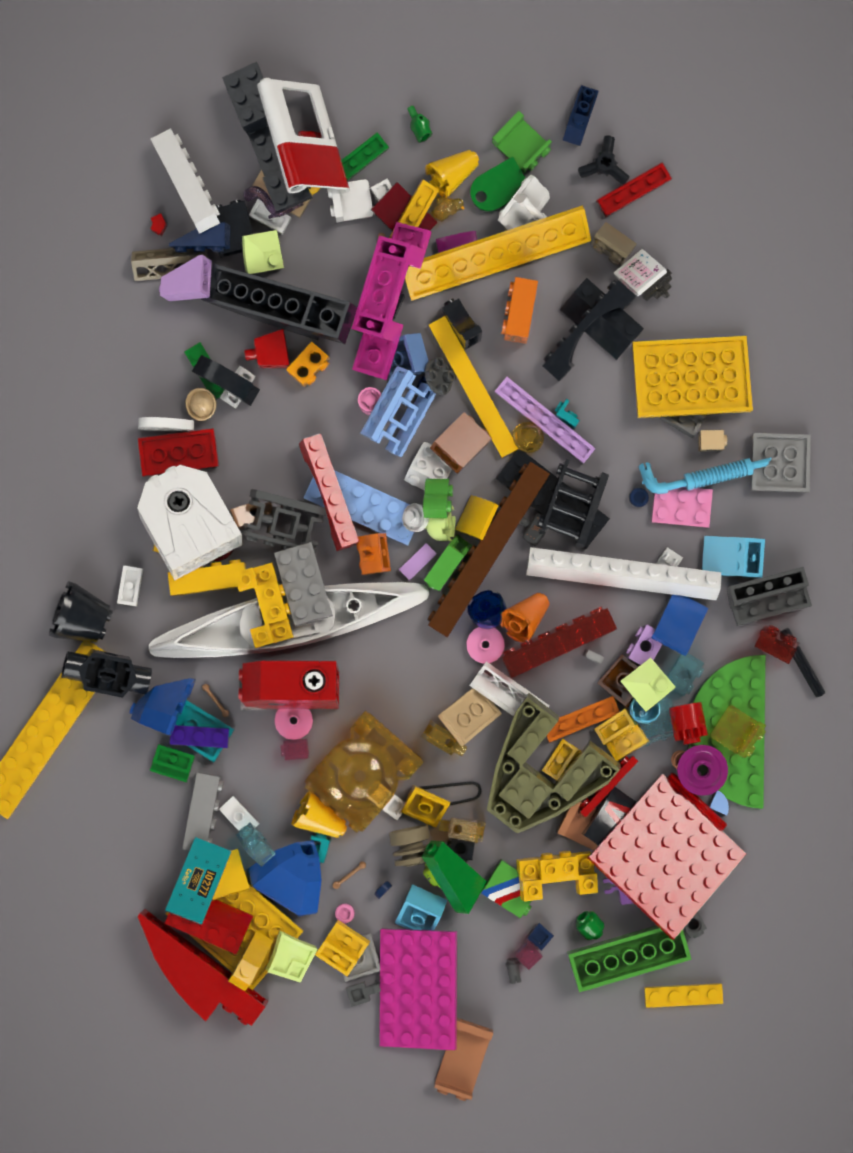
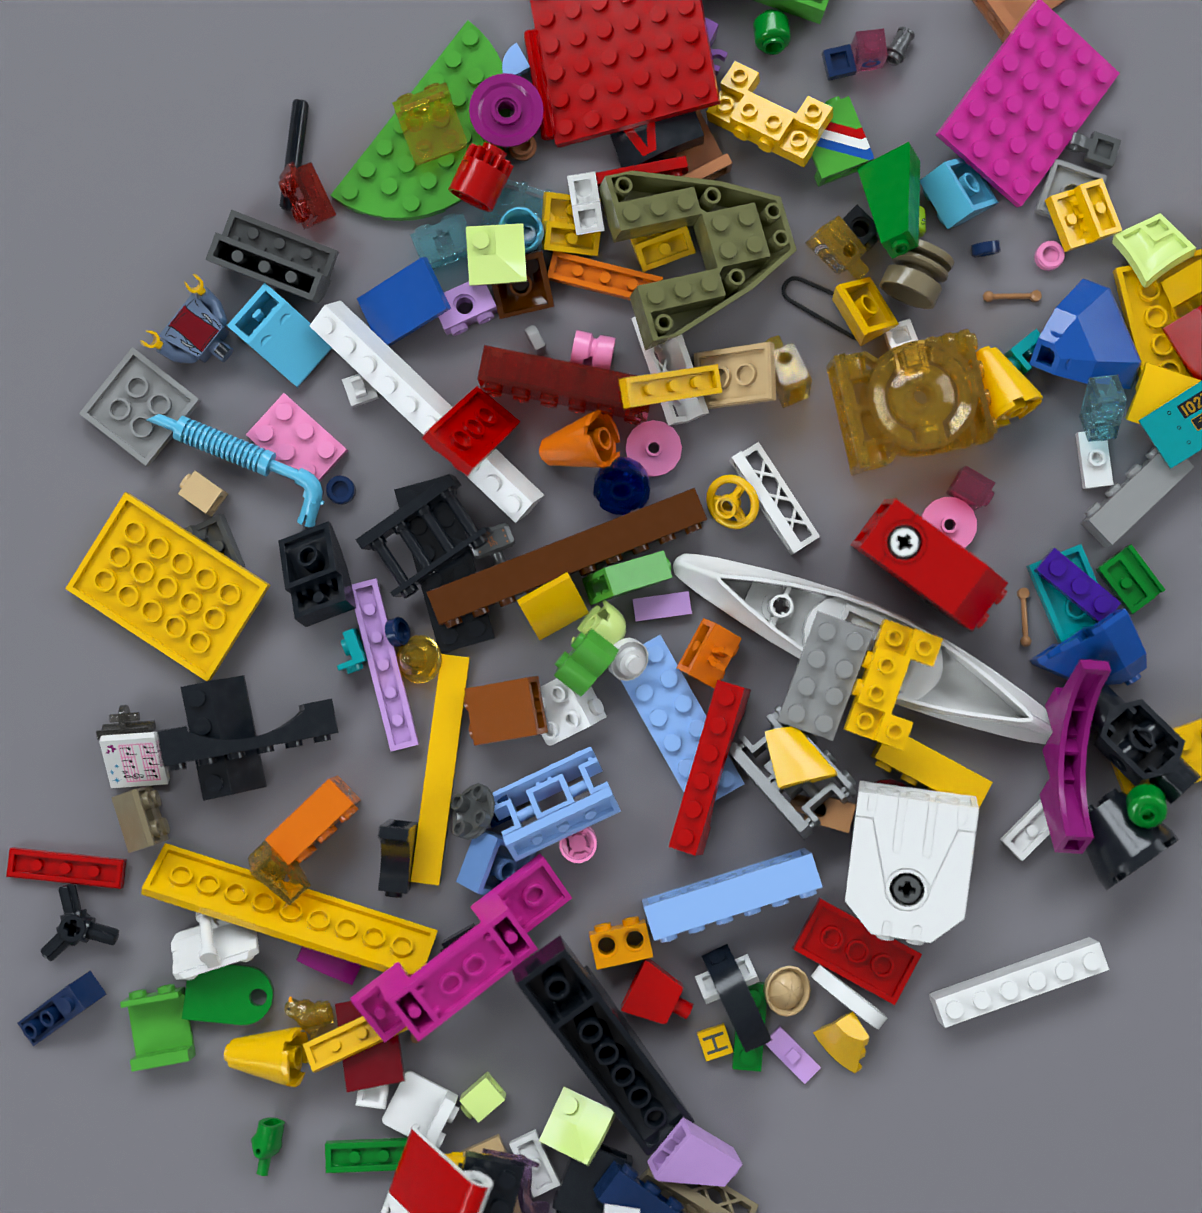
camera: 150 degrees left, 0 degrees up
(79, 498) = (1018, 981): none -> white brick
(81, 638) = (1146, 805): none -> green head
(142, 638) = (1065, 754): none -> magenta arch
(151, 399) = (844, 1041): none -> yellow slope
(173, 372) = (792, 1055): none -> lavender piece
(219, 349) = (715, 1042): none -> yellow tile
(269, 432) = (732, 894): none -> light blue brick
(287, 528) = (796, 758): none -> yellow slope
(323, 230) = (482, 1097): none -> yellowish green brick
(400, 658) = (766, 503): none -> white fence
(421, 641) = (722, 510): none -> yellow piece
(500, 680) = (670, 386): none -> yellow plate
(523, 268) = (271, 871): none -> clear yellow torso
(550, 443) = (397, 631): none -> dark blue tile
(557, 672) = (592, 351): none -> bright pink wheel
(590, 578) = (471, 430): none -> red plate
(617, 441) = (316, 575): none -> black slope
(621, 750) = (585, 203): none -> white slope
(782, 525) = (195, 329): none -> torso

